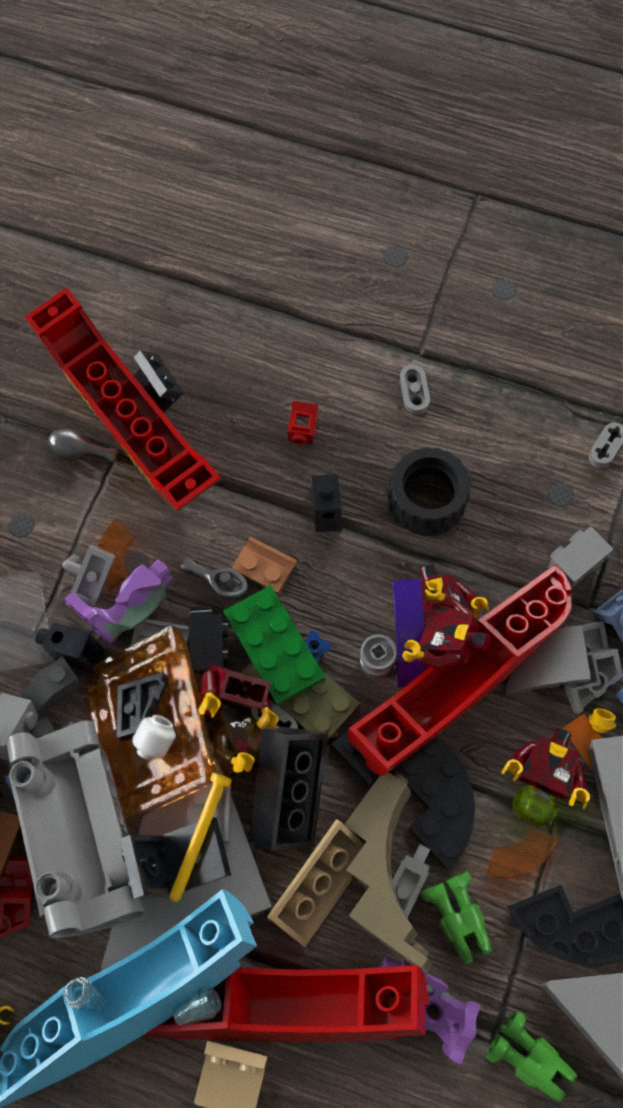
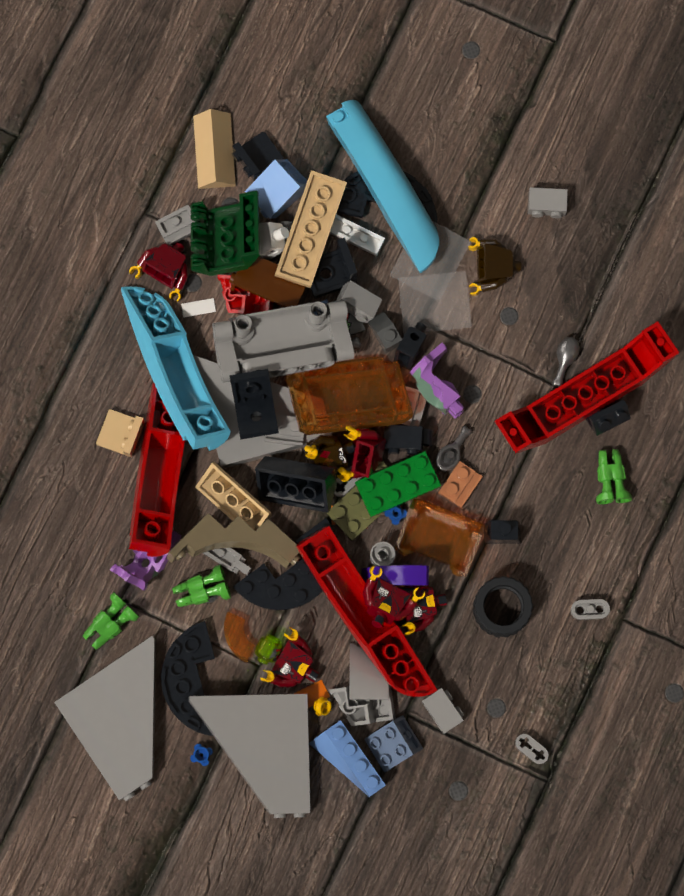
camera: 95 degrees right, 10 degrees up
(22, 976) = (198, 307): none -> white sticker
(83, 995) = (179, 343): clear light blue cone -> none
(91, 573) = (463, 362): light grey plate -> none
(116, 541) = (479, 378): clear orange tile -> none
(138, 701) = (361, 388): black wing -> none
(154, 737) = (335, 396): white head -> none
(199, 1007) = (163, 414): clear light blue cone -> none
(219, 782) = (297, 434): yellow bar -> none
(228, 378) = (612, 472): none -> bright green piece
(302, 423) = (567, 522): red window -> none
(340, 580) = (440, 535): none -> clear orange windscreen

